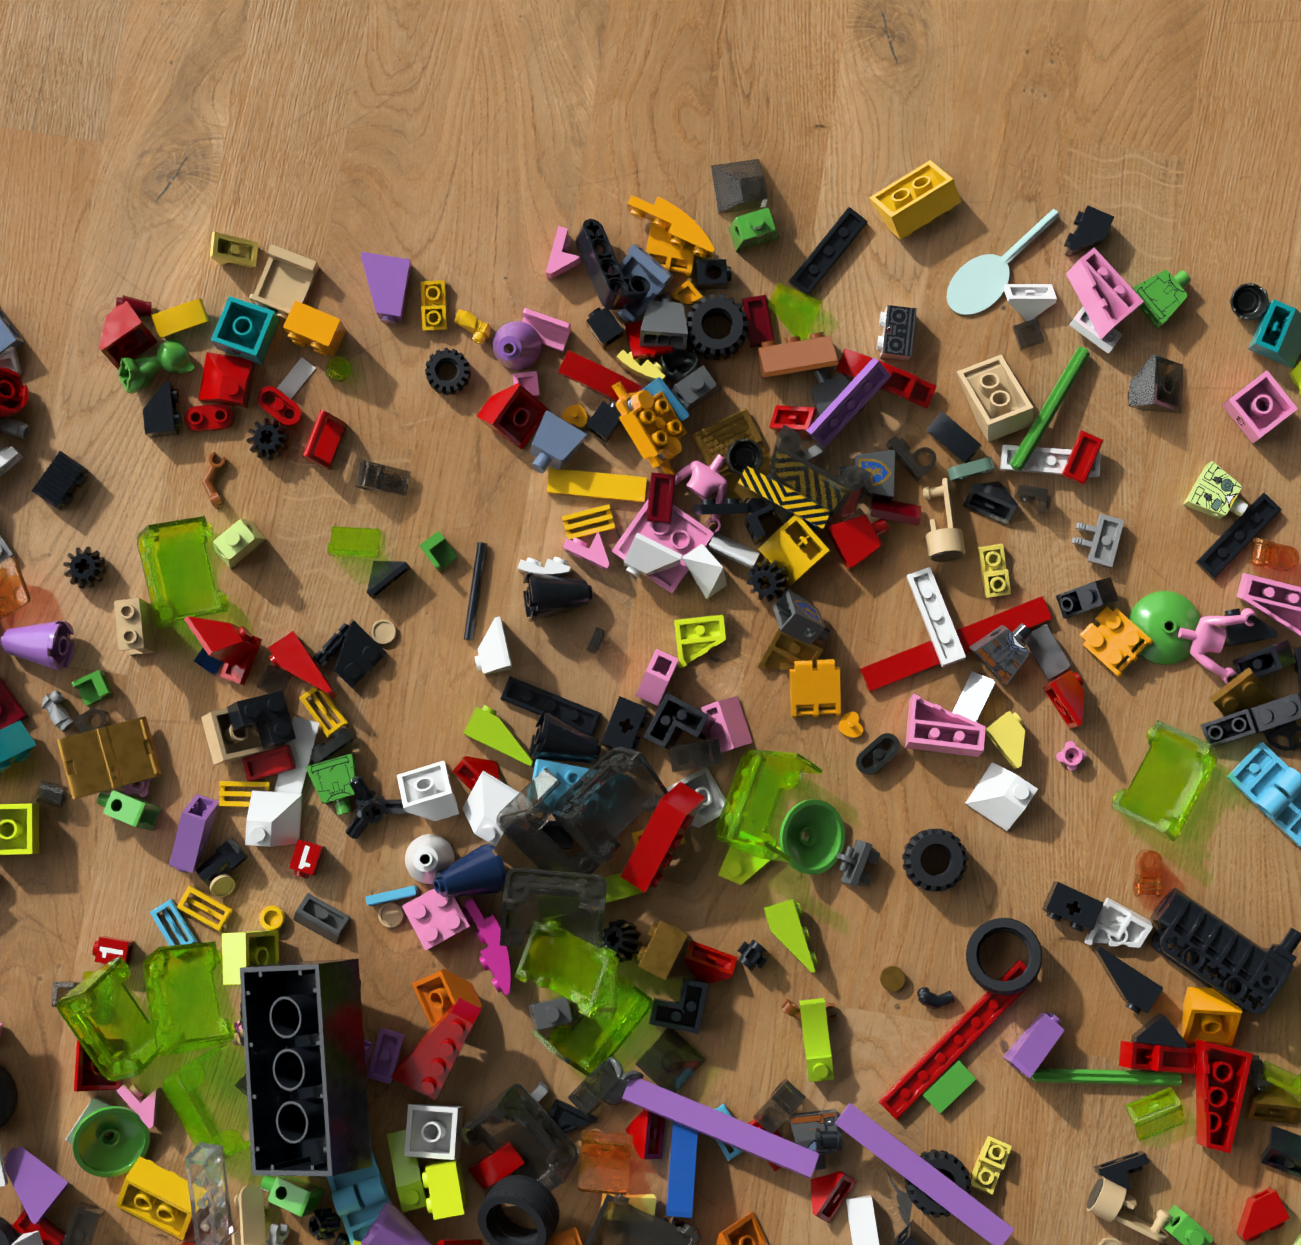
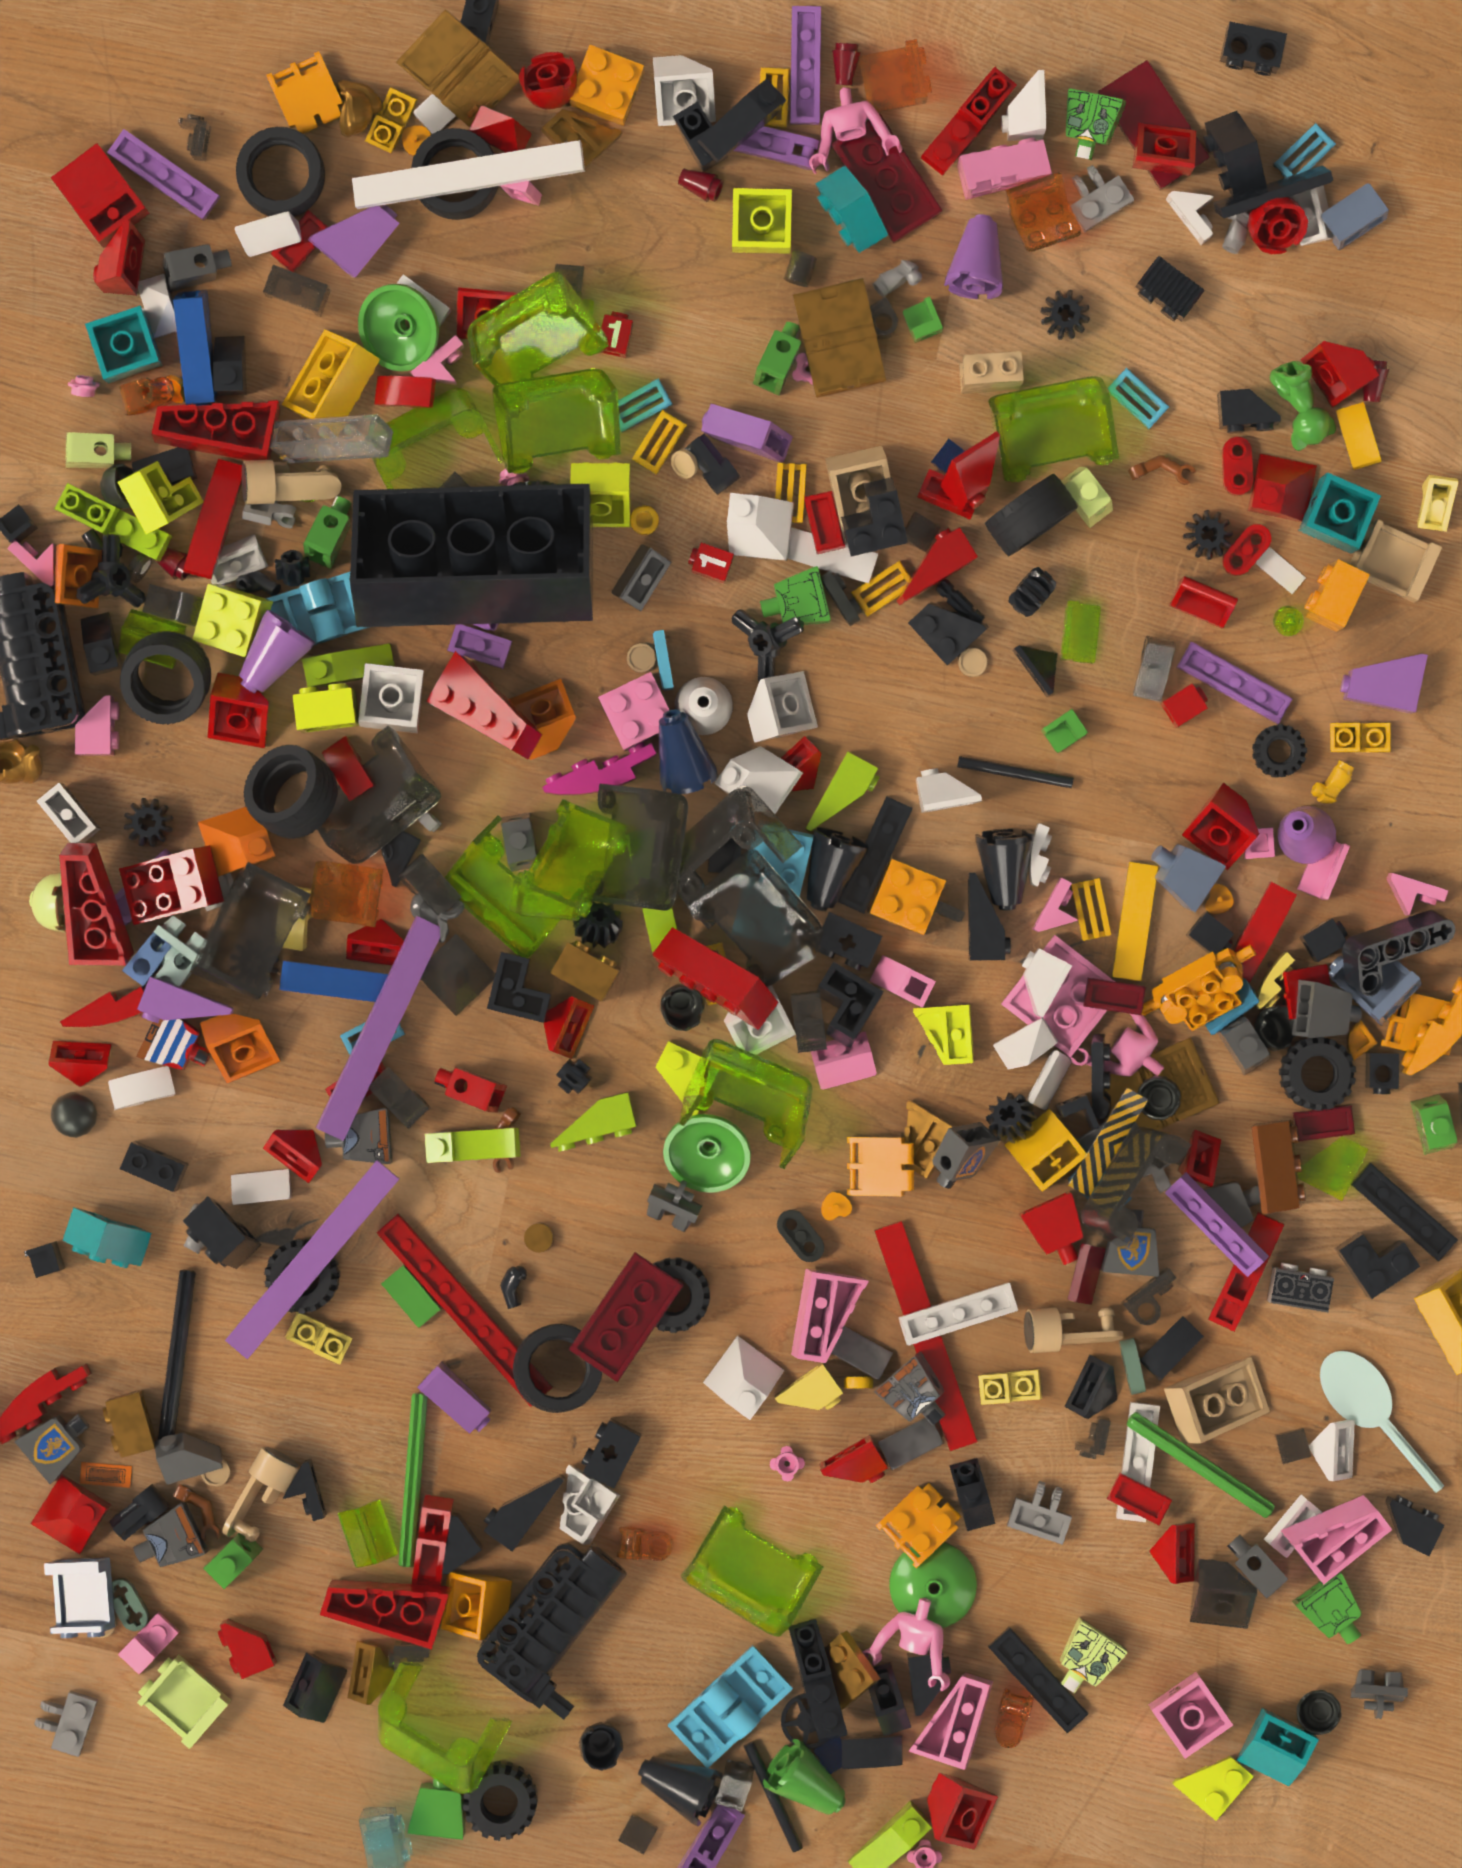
camera: 95 degrees right, 5 degrees up
(163, 508) = (1129, 406): none -> tile
(167, 1132) = (405, 391): none -> red slope
(254, 586) = (1031, 514): none -> black tyre
(321, 583) = (1032, 592): none -> black gear
(392, 411) = (1234, 682): none -> medium lavender tile
(412, 451) = (1185, 705): none -> red brick
(585, 676) = (907, 897): none -> light orange brick
(608, 610) = (985, 930): none -> black slope
(689, 864) = (682, 1007): none -> pearl dark grey hair
(770, 1034) = (480, 1093): none -> red torso
(828, 1140) = (358, 1152): black bush -> none
(878, 274) = (1373, 1270): none -> black brick
(957, 899) = (626, 1316): none -> dark red tile
(999, 698) = (858, 1383): none -> yellow tile
(1124, 426) = (1176, 1552): none -> red slope
(1140, 349) = (1267, 1577): none -> dark grey torso
(1226, 243) = (1391, 1691): none -> dark grey hips

